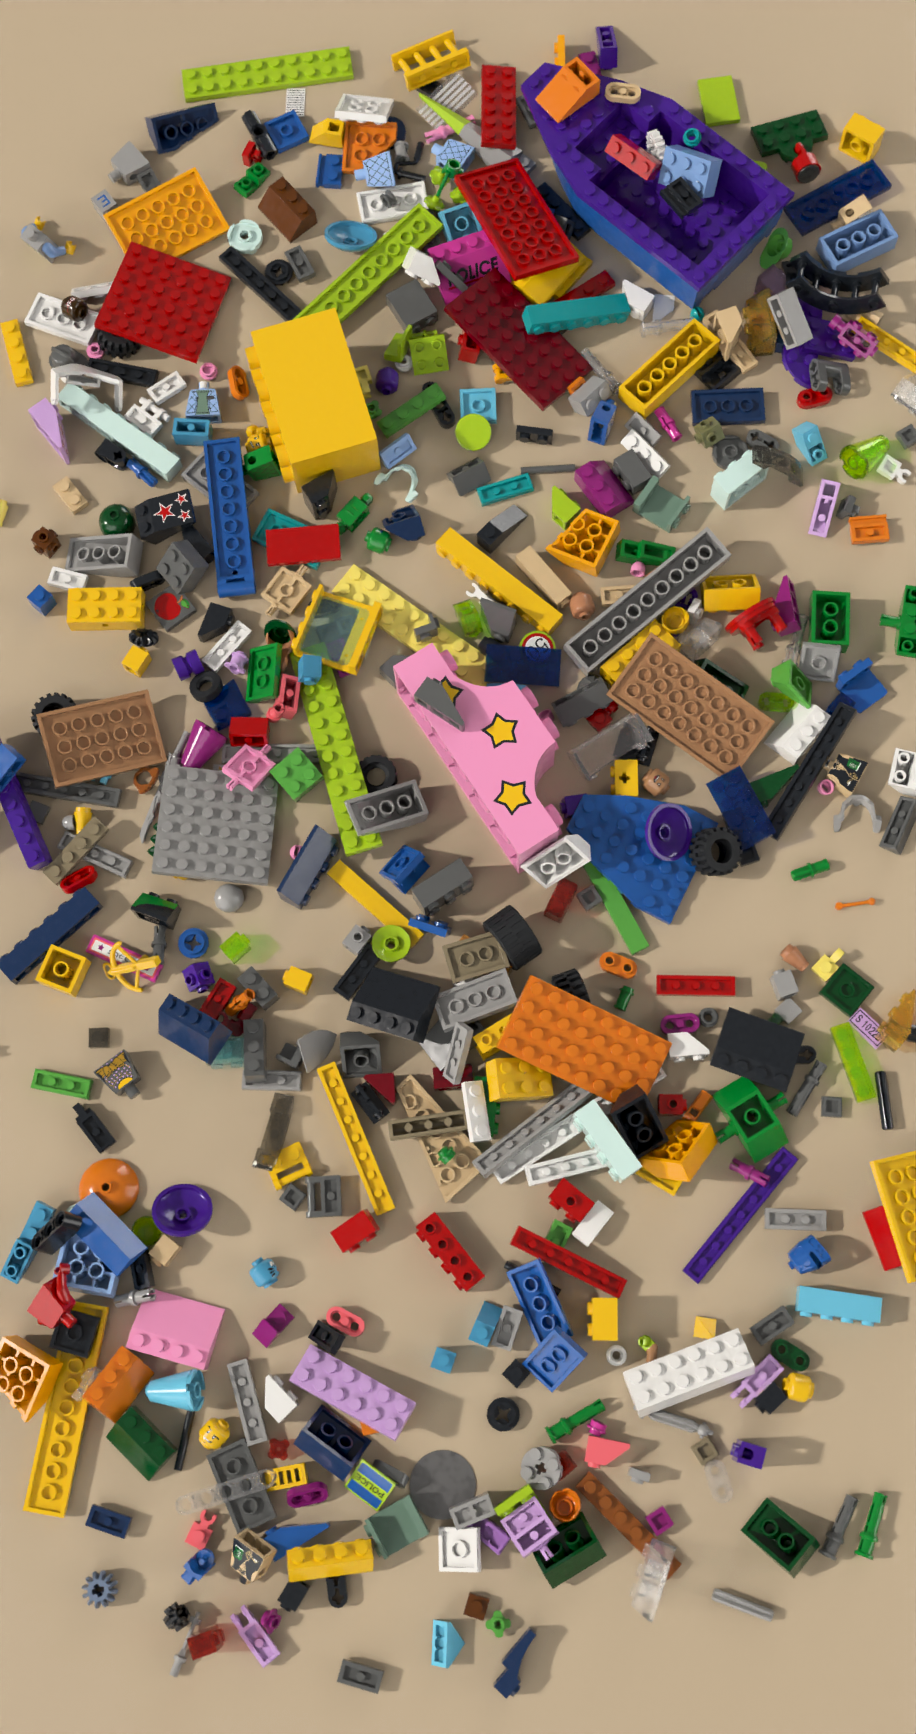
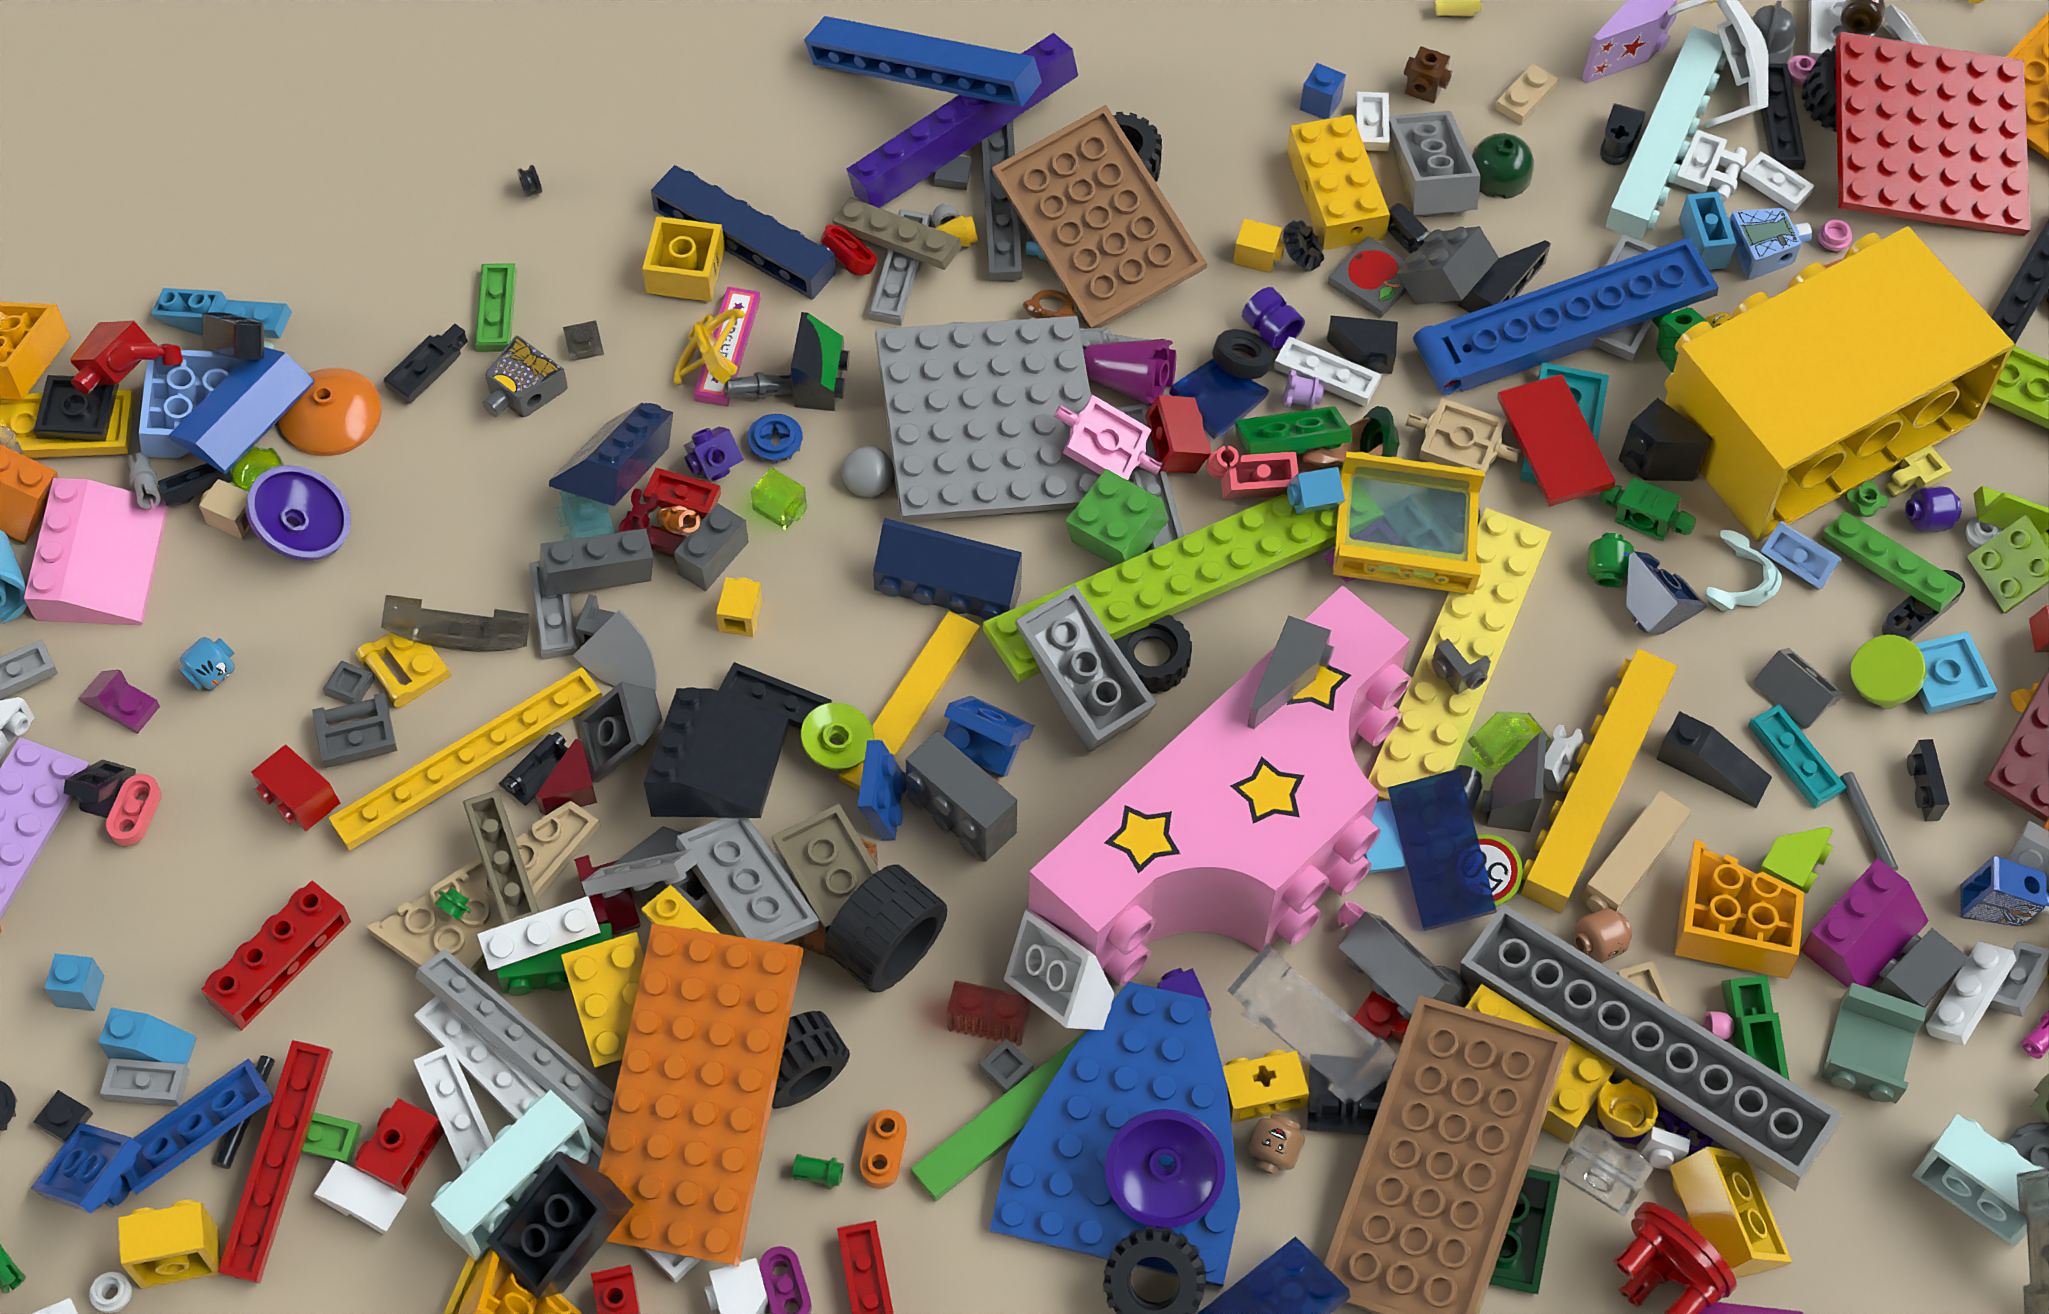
camera: 70 degrees right, 15 degrees down
(142, 472) = (1606, 181): blue axle -> none
(164, 516) = (1531, 218): black slope -> none
(357, 939) = (834, 680): light grey brick -> none

